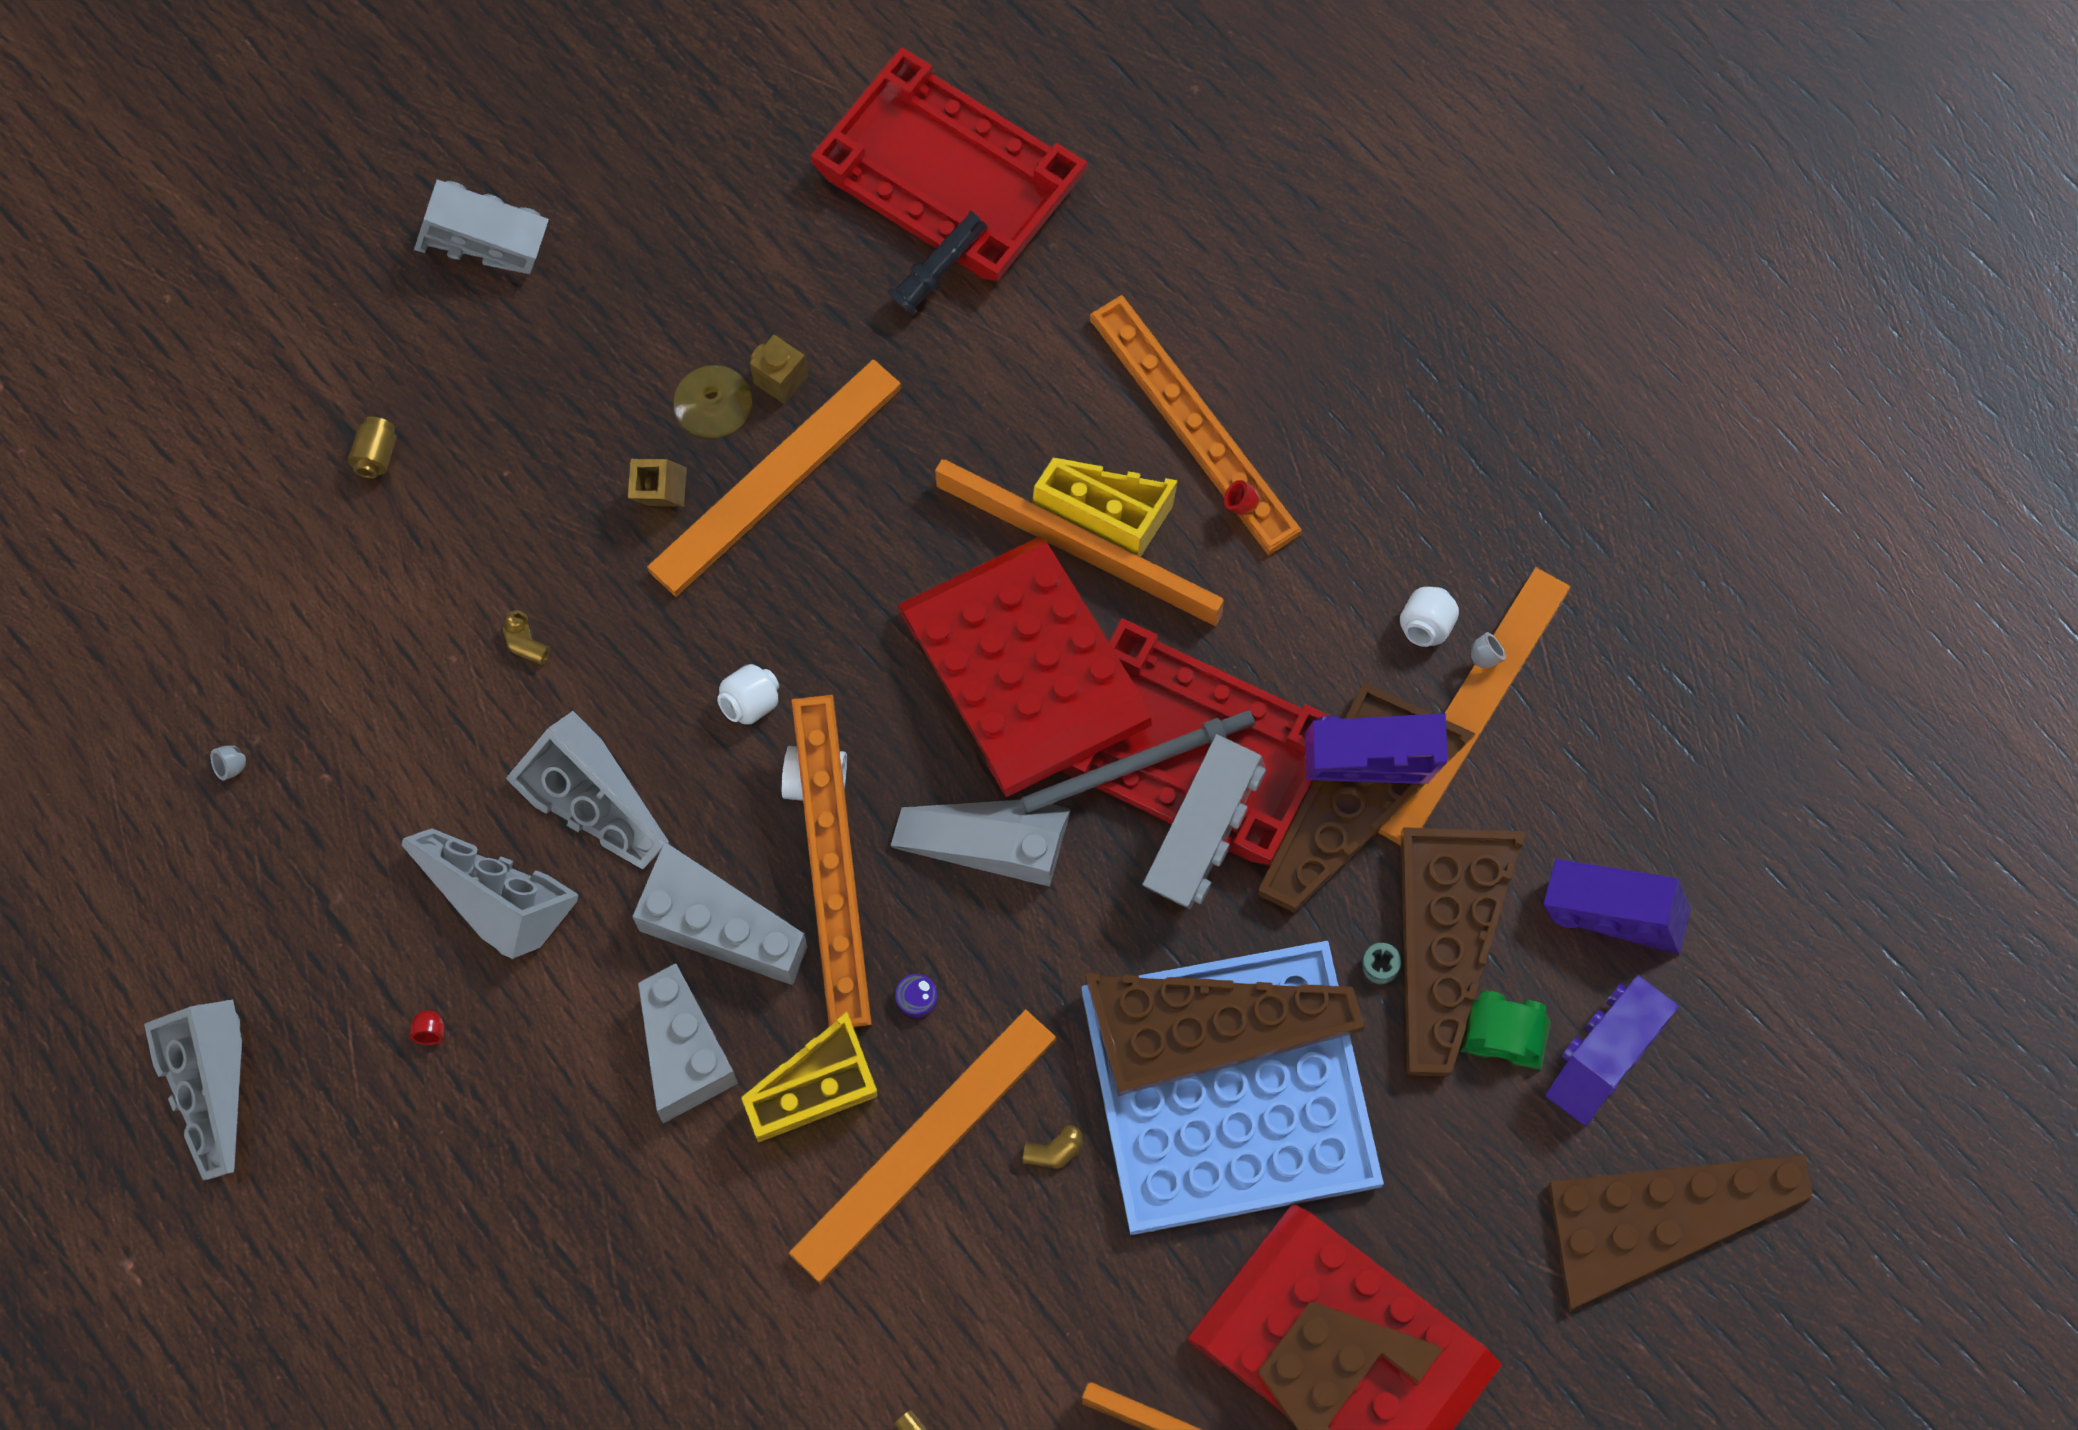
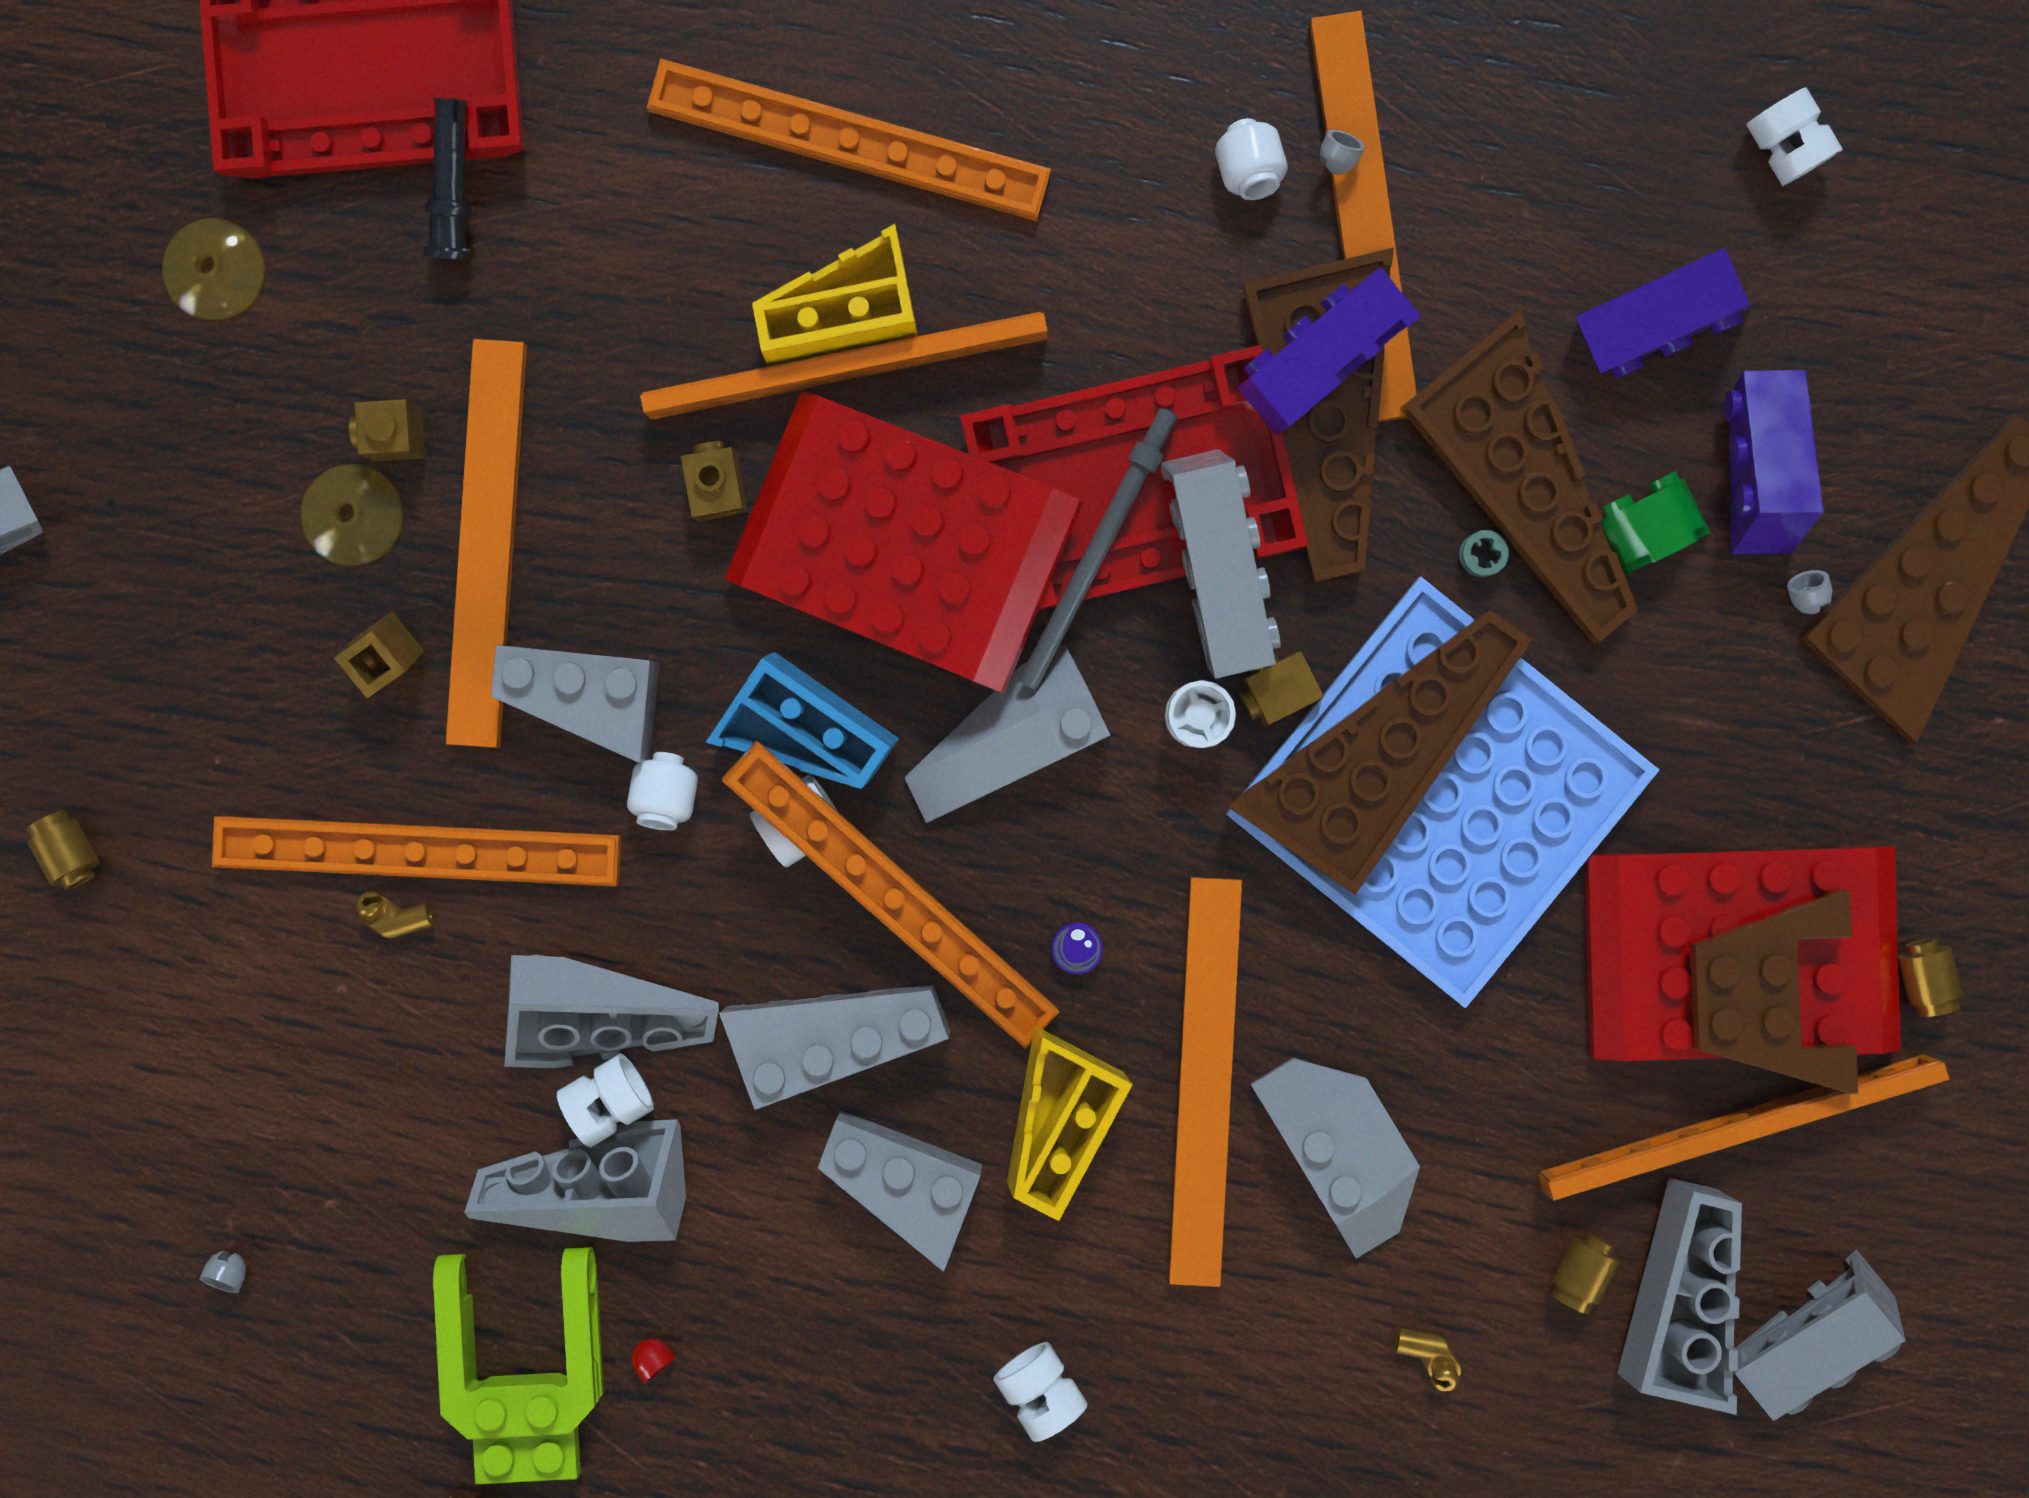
camera: 45 degrees left, 20 degrees up
(318, 999) = (528, 1422): none -> lime plate
(561, 846) = (620, 1090): none -> white wheel
(574, 616) = (416, 851): none -> orange tile
(647, 1247) = (1044, 1397): none -> white wheel
(757, 601) = (585, 694): none -> light grey wedge
(764, 224) = (235, 275): none -> clear yellow dish
(869, 720) = (803, 725): none -> dark azure wedge
(941, 545) = (714, 481): none -> pearl gold brick
(973, 1263) = (1343, 1147): none -> light grey wedge
(1056, 1153) = (1334, 985): pearl gold arm -> none
(1116, 910) = (1200, 714): none -> white wheel
(1180, 937) = (1280, 689): none -> pearl gold brick
(1241, 498) = (968, 187): red hinge -> none
(1576, 1154) = (1810, 591): none -> light grey hinge
(1787, 864) = (1784, 120): none -> white wheel

